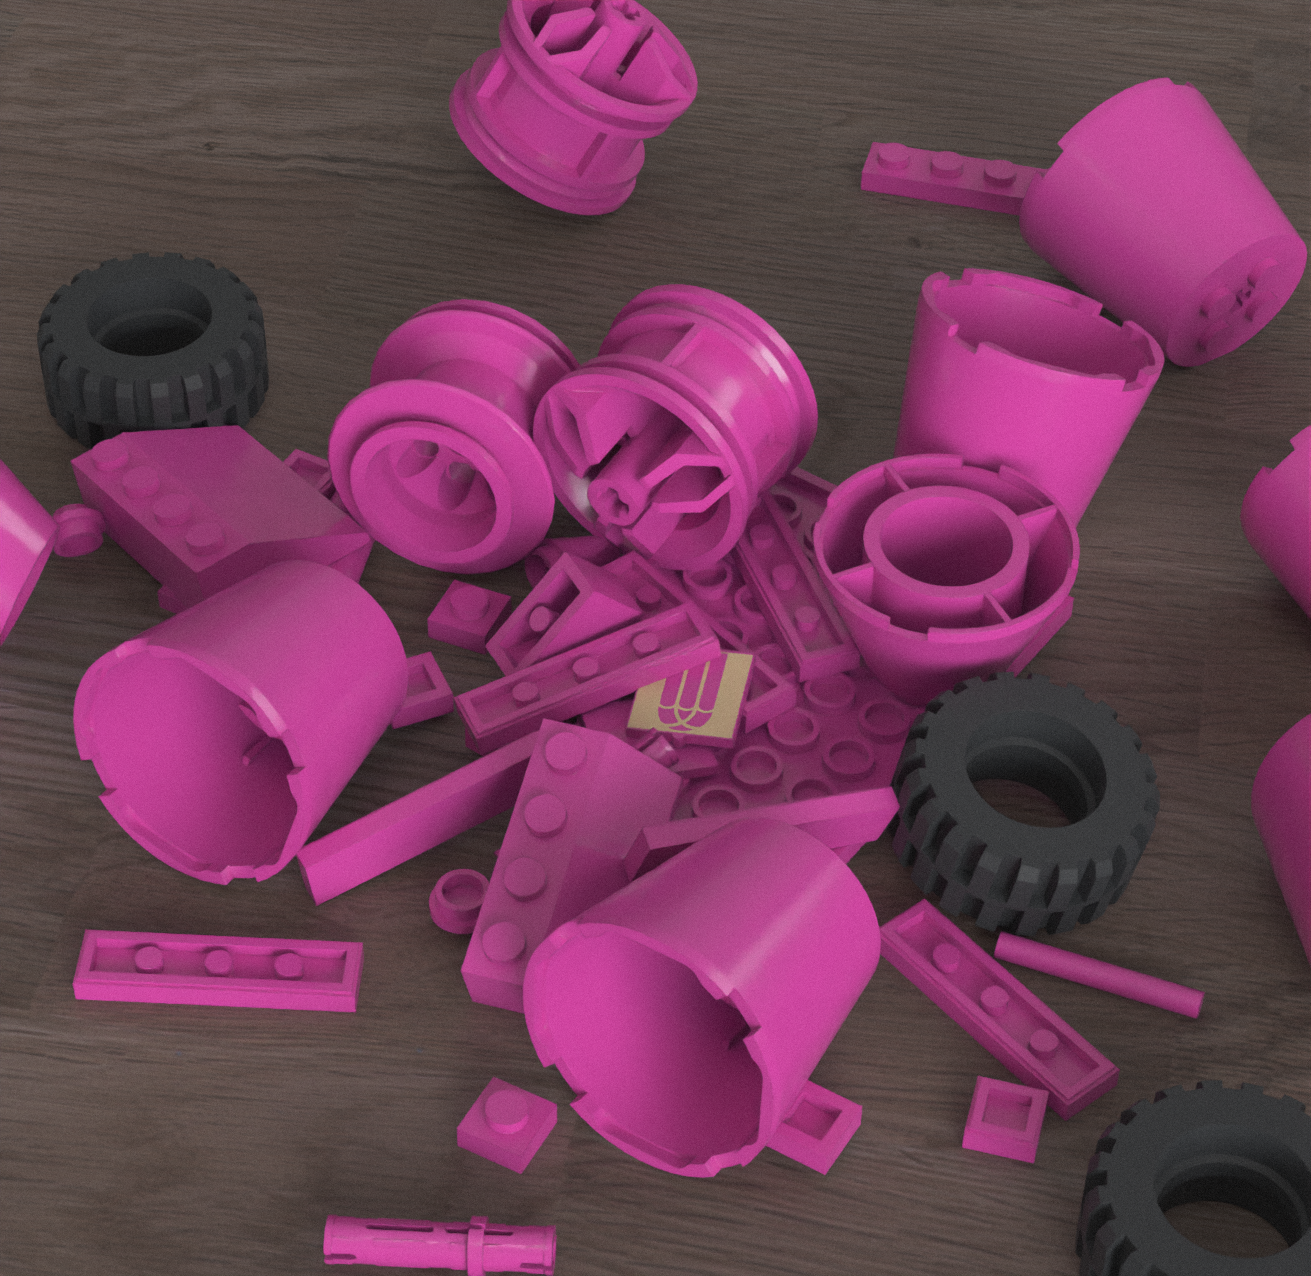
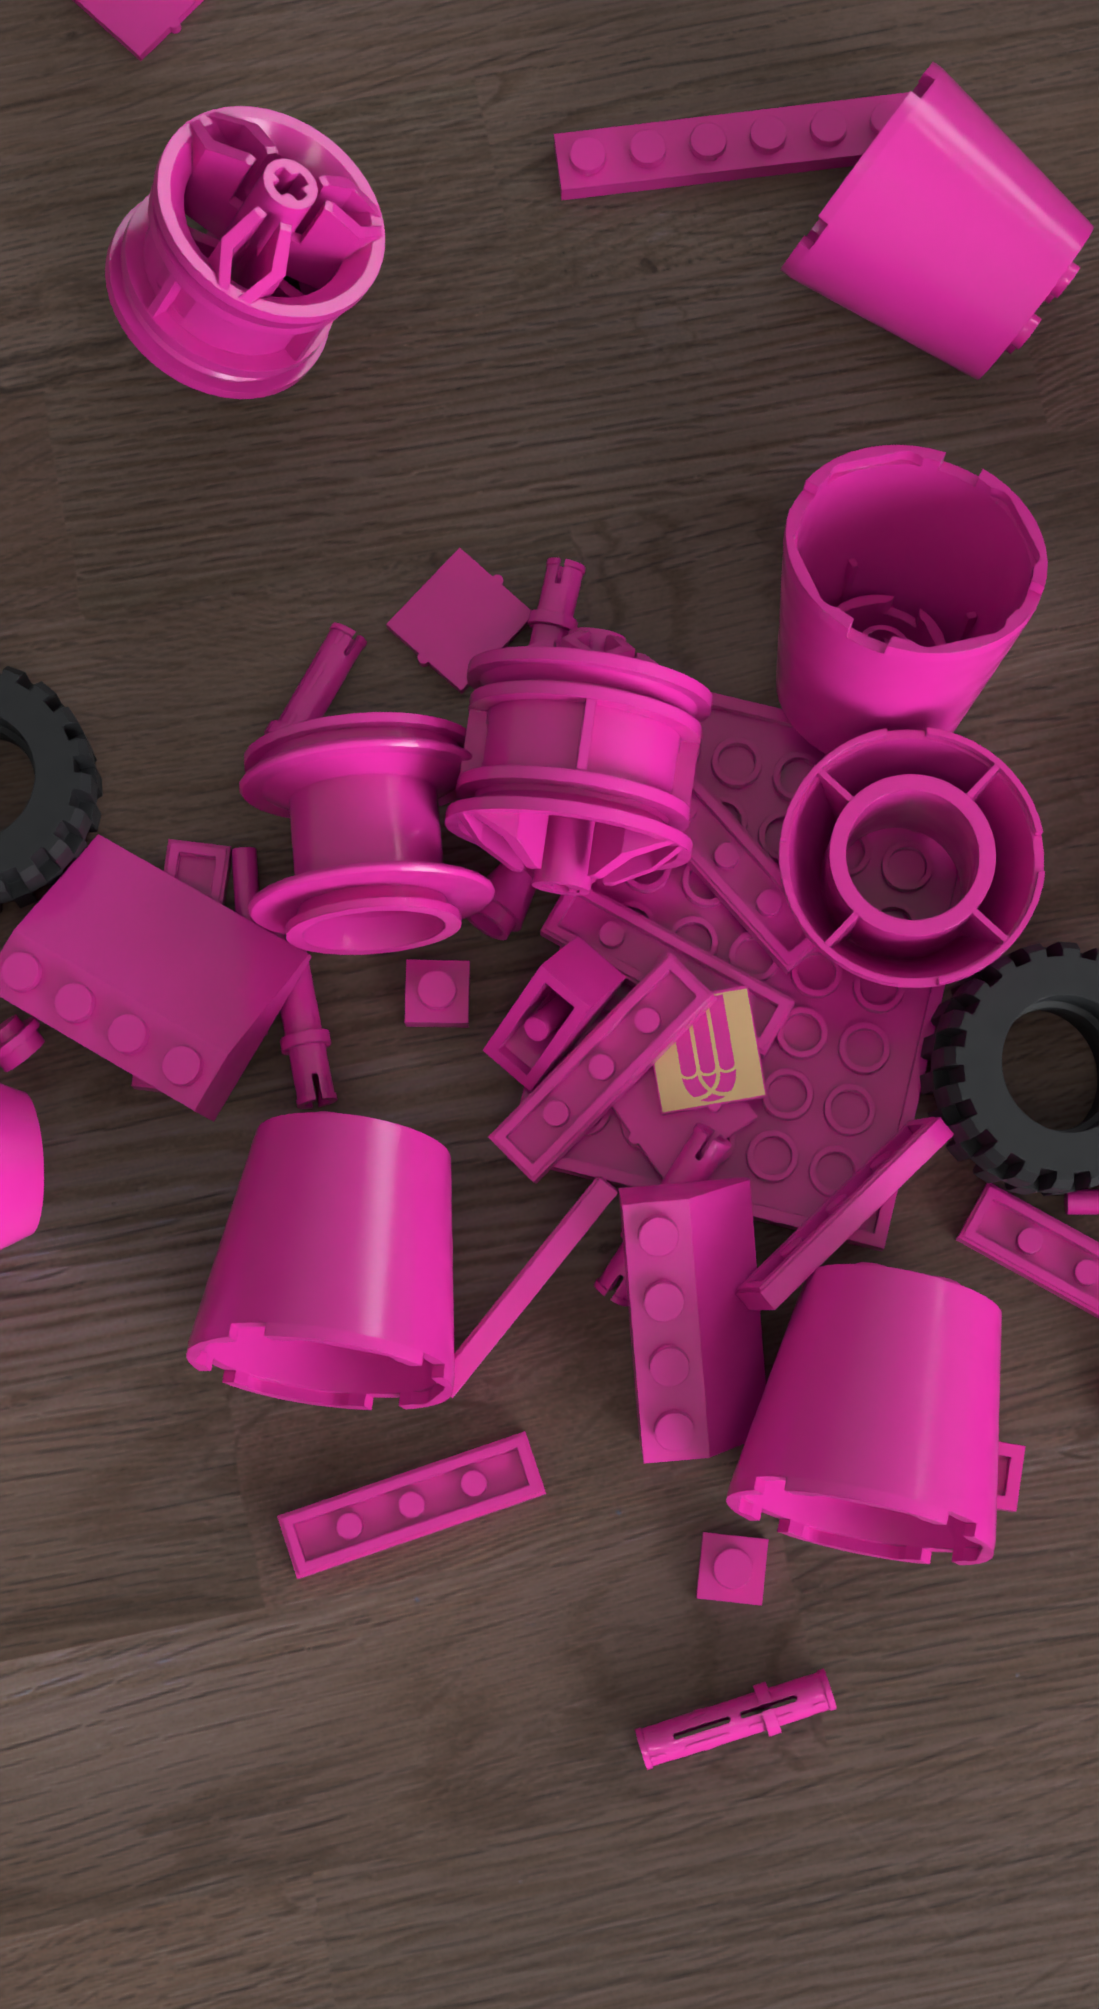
camera: 20 degrees left, 35 degrees up
(426, 694) = (434, 1111): dark pink plate -> none
(458, 900) = (590, 1348): dark pink plate -> none

